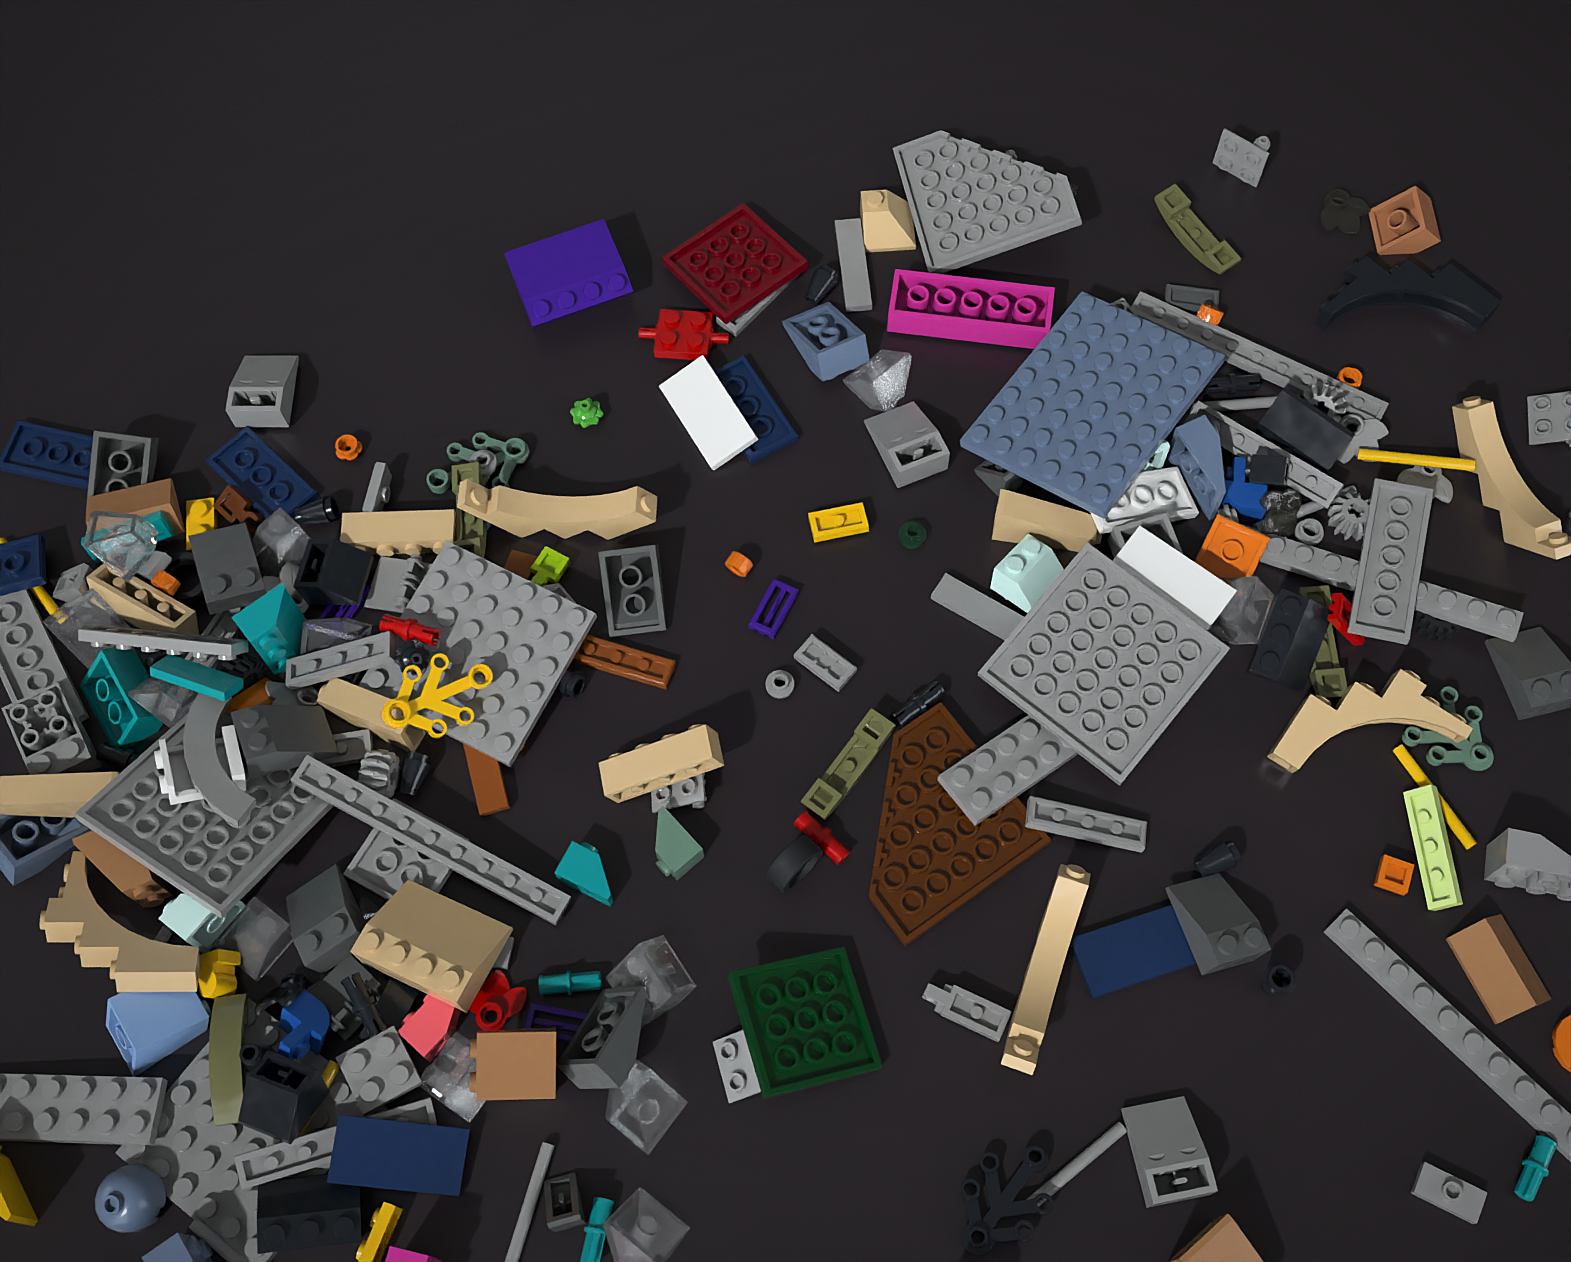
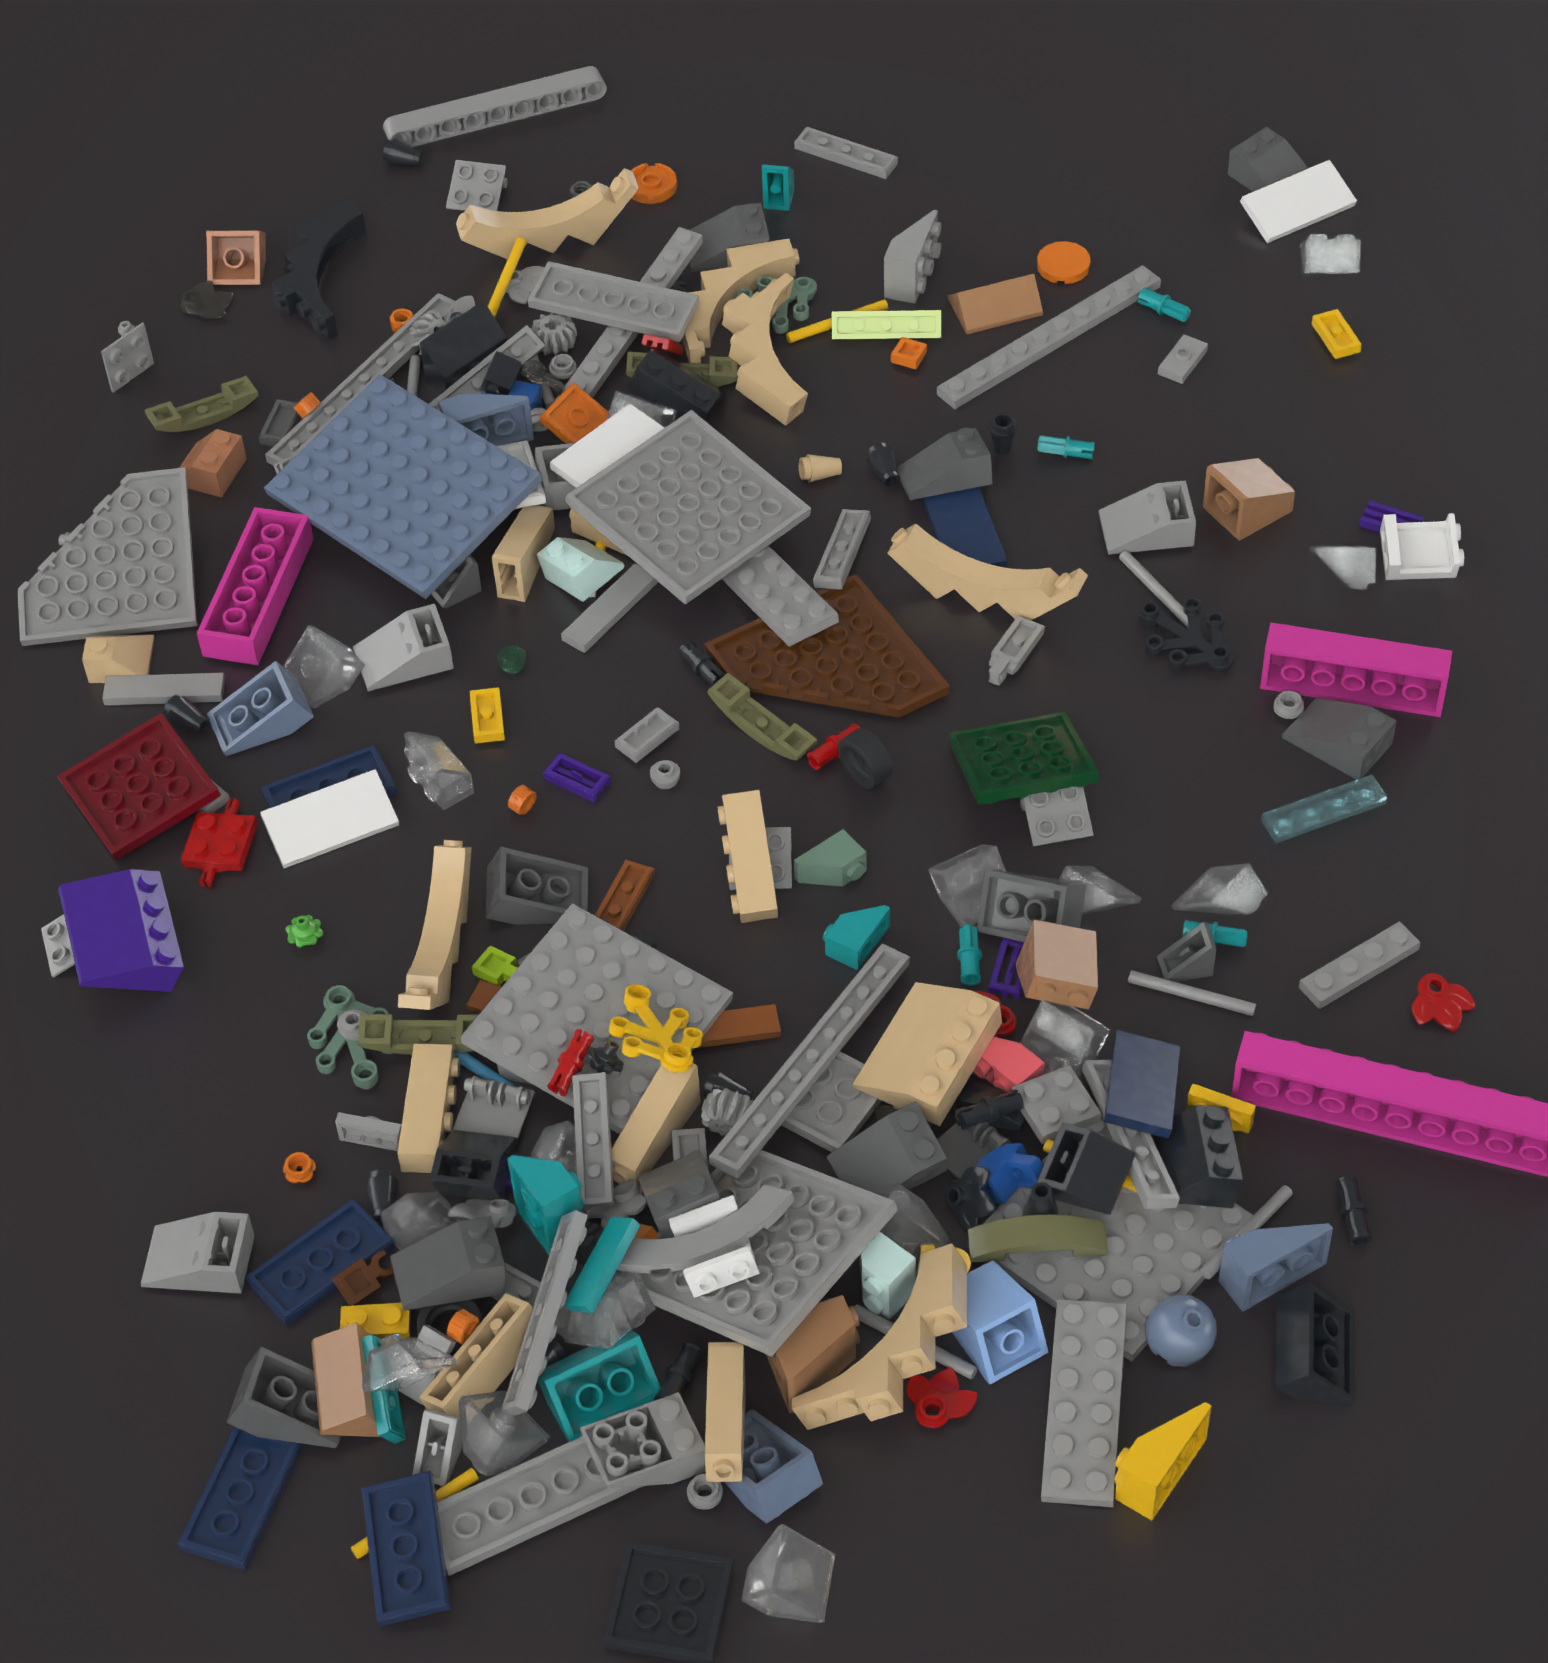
camera: 85 degrees left, 15 degrees down
(93, 985) = (939, 1394): none -> red plate
(763, 486) = (437, 769): none -> clear slope
(1124, 253) = (214, 462): none -> nougat slope
(1202, 792) = (818, 467): none -> tan cone
(1274, 1058) = (1065, 447): none -> teal axle
(1492, 692) = (720, 285): none -> tan arch

